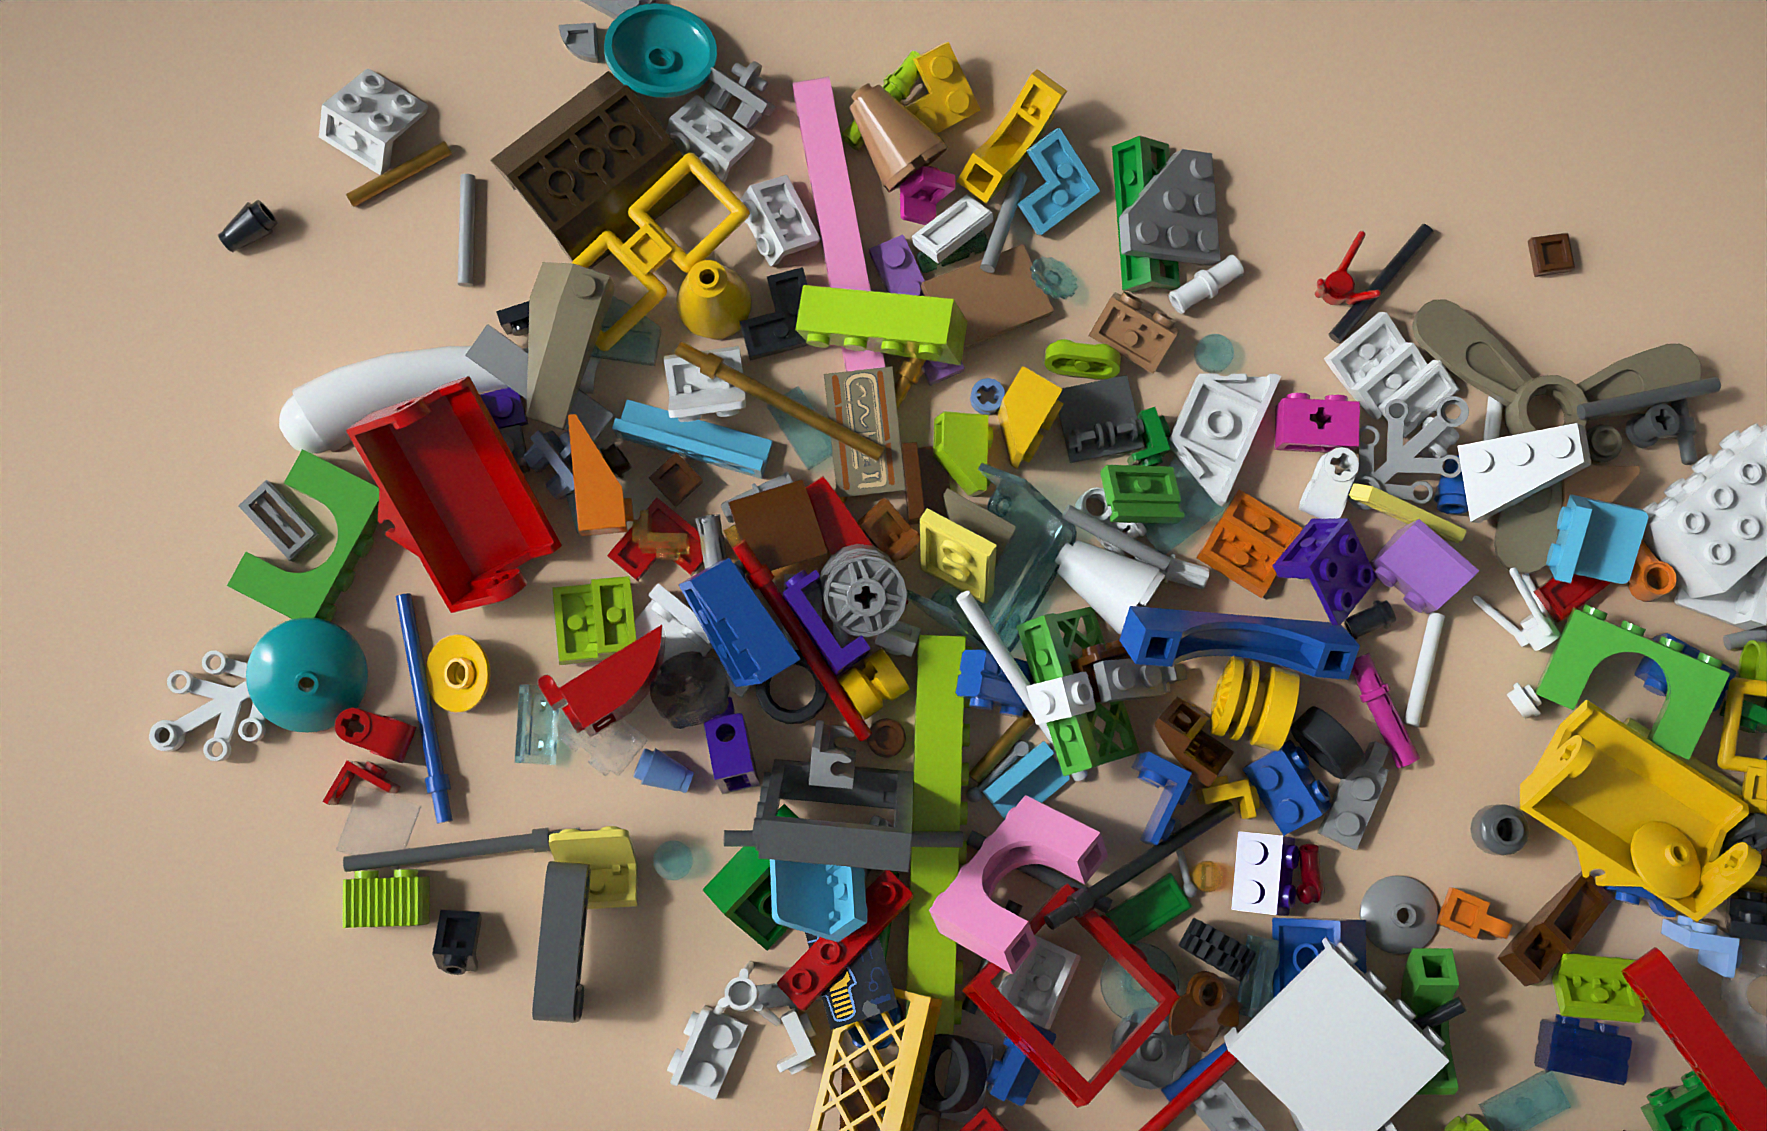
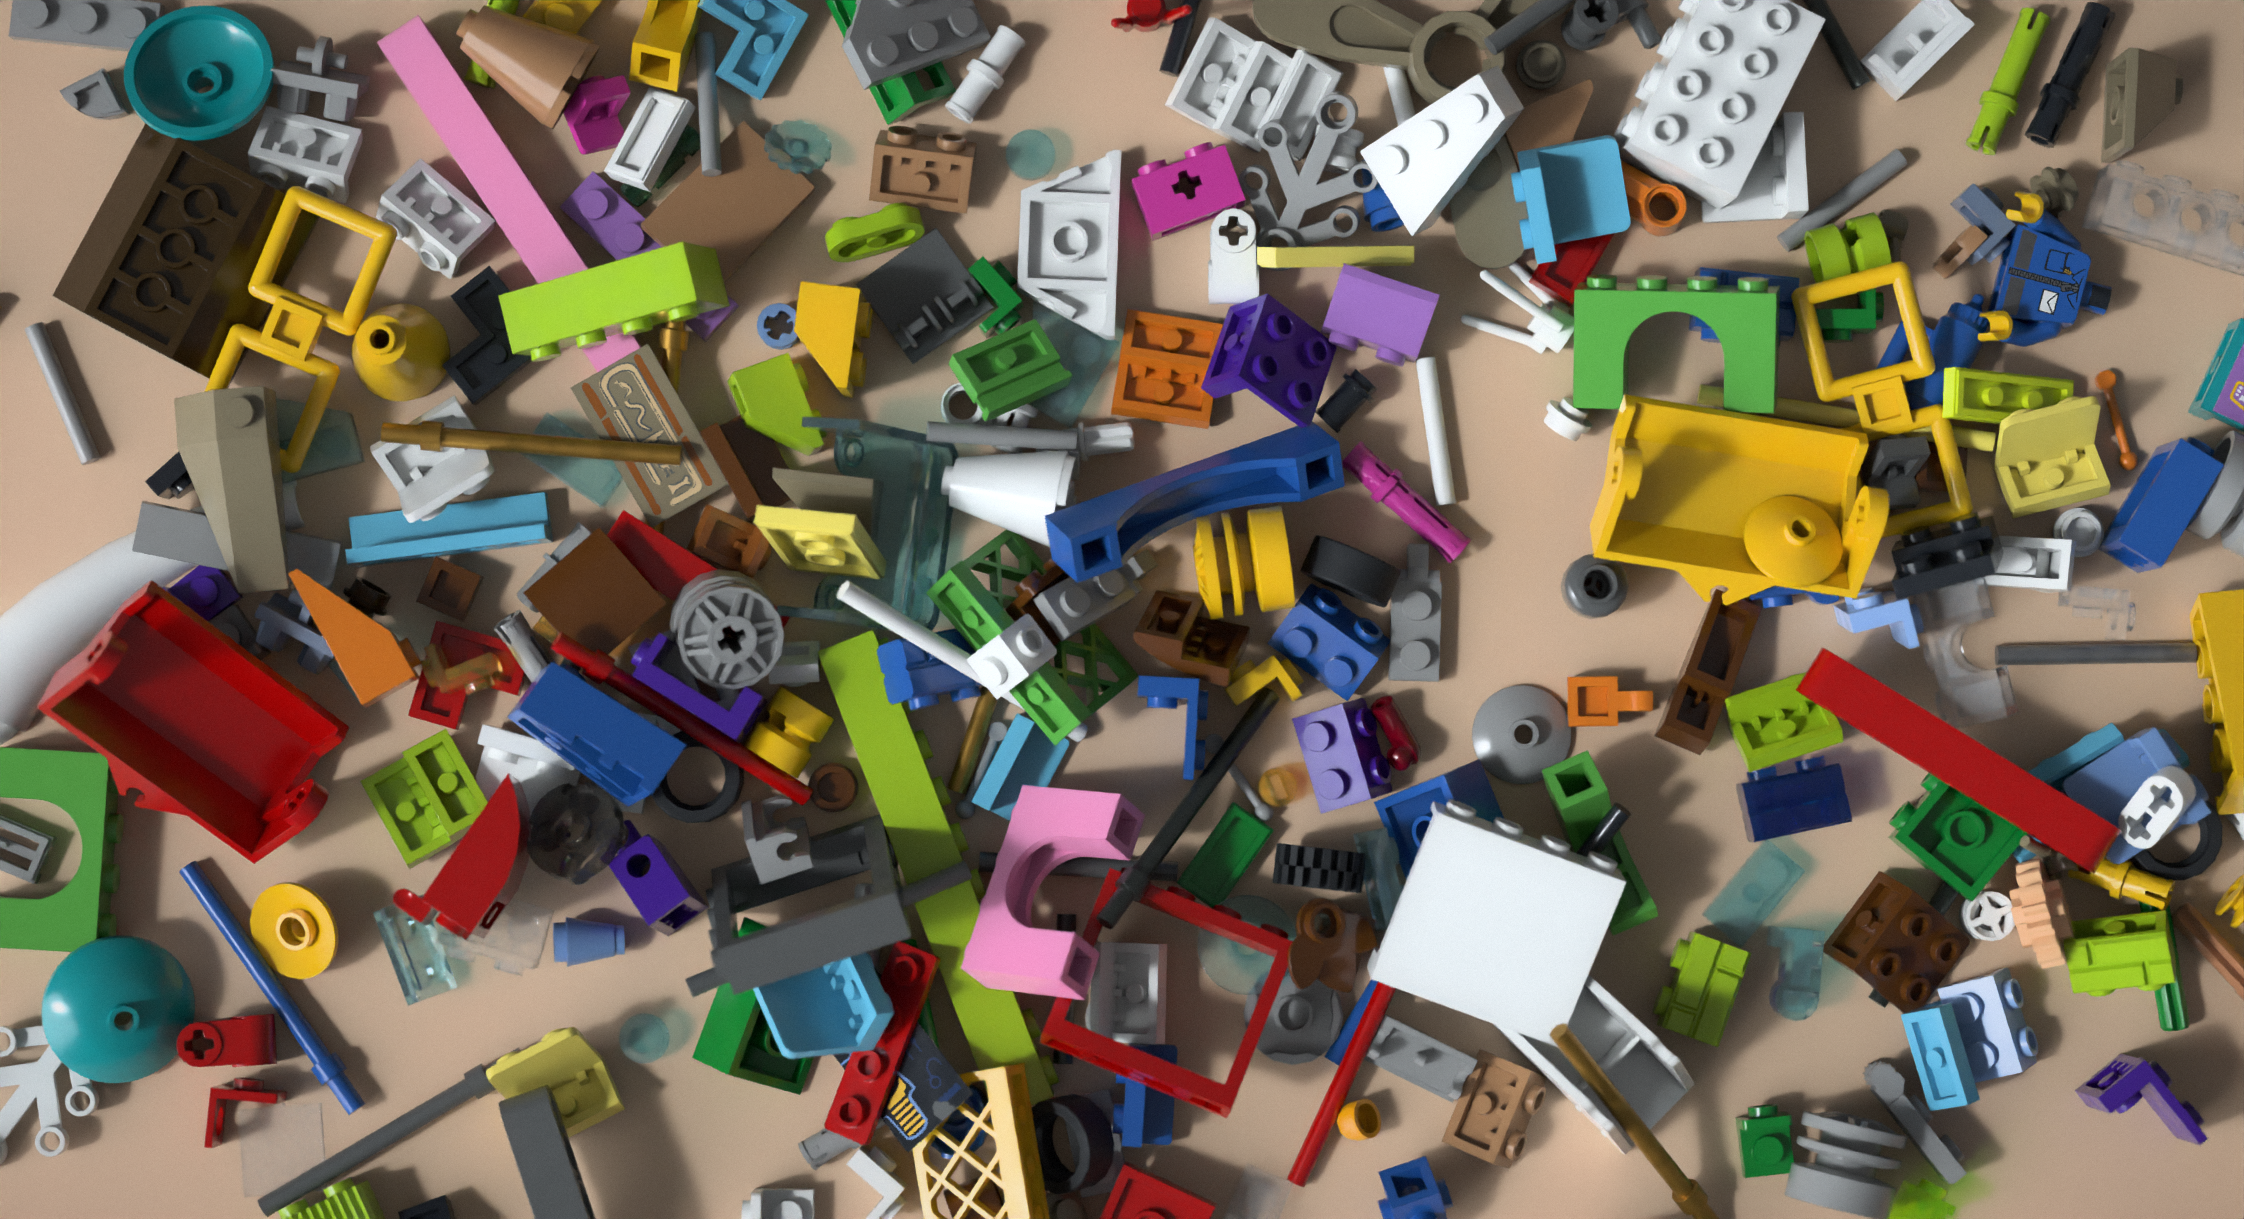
camera: 15 degrees left, 5 degrees up
(743, 996) = (790, 1157): white plant -> none

